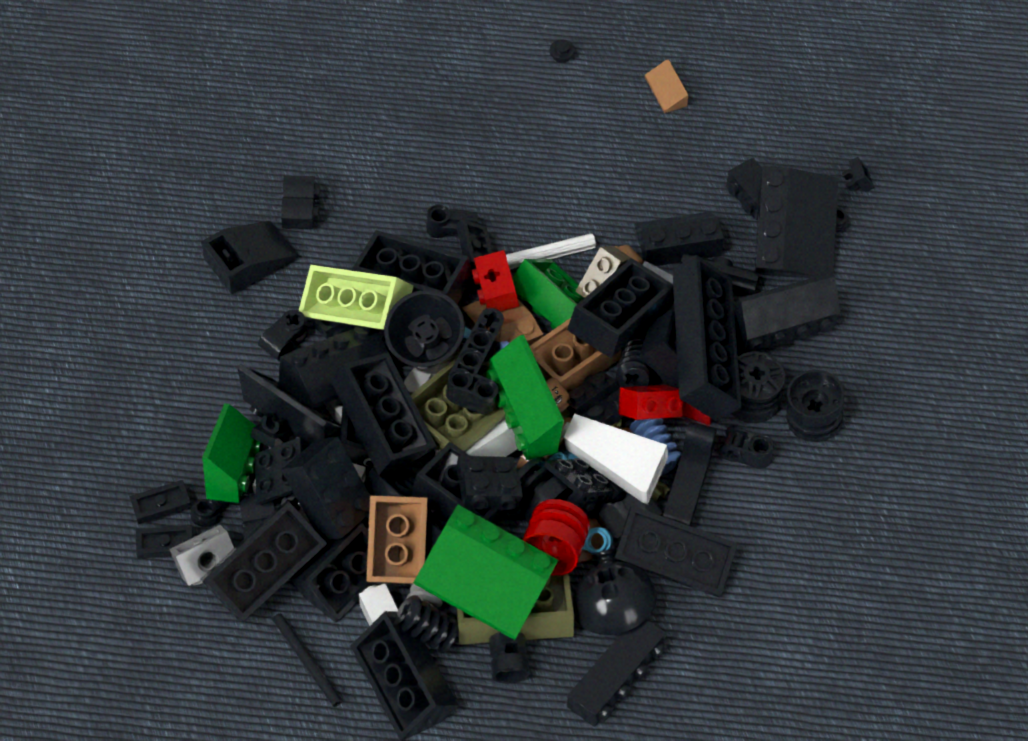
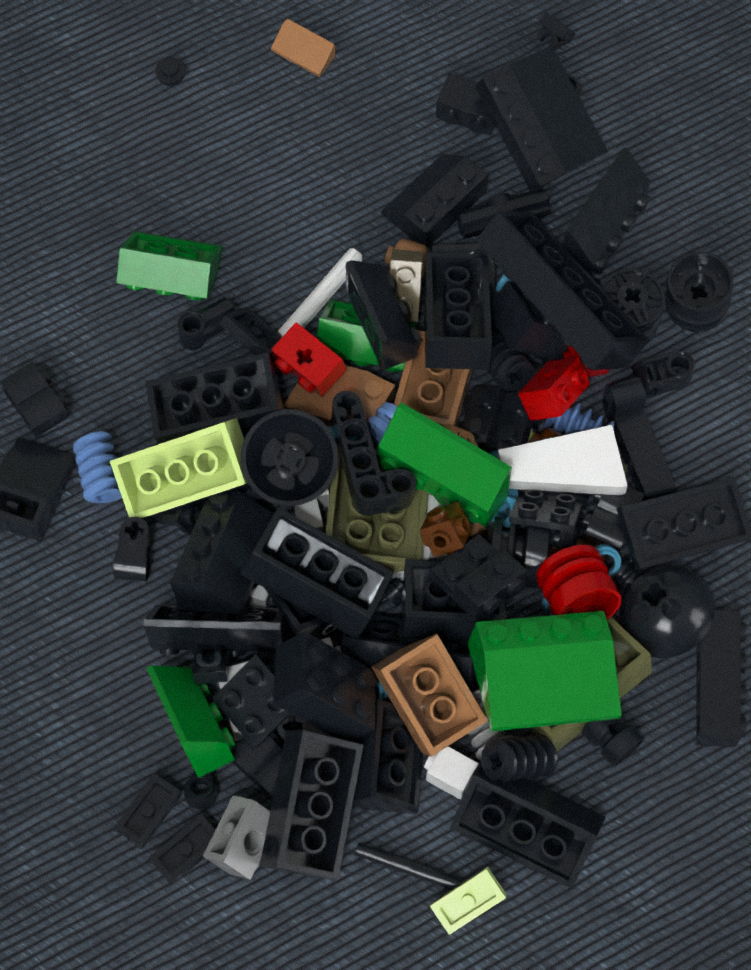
camera: 35 degrees left, 10 degrees up
(297, 271) = (95, 468): none -> medium blue piece
(320, 695) = (468, 900): none -> yellowish green plate
(457, 171) = (168, 265): none -> slope
(493, 439) = (445, 529): none -> reddish brown brick
(564, 275) = (381, 314): none -> black slope

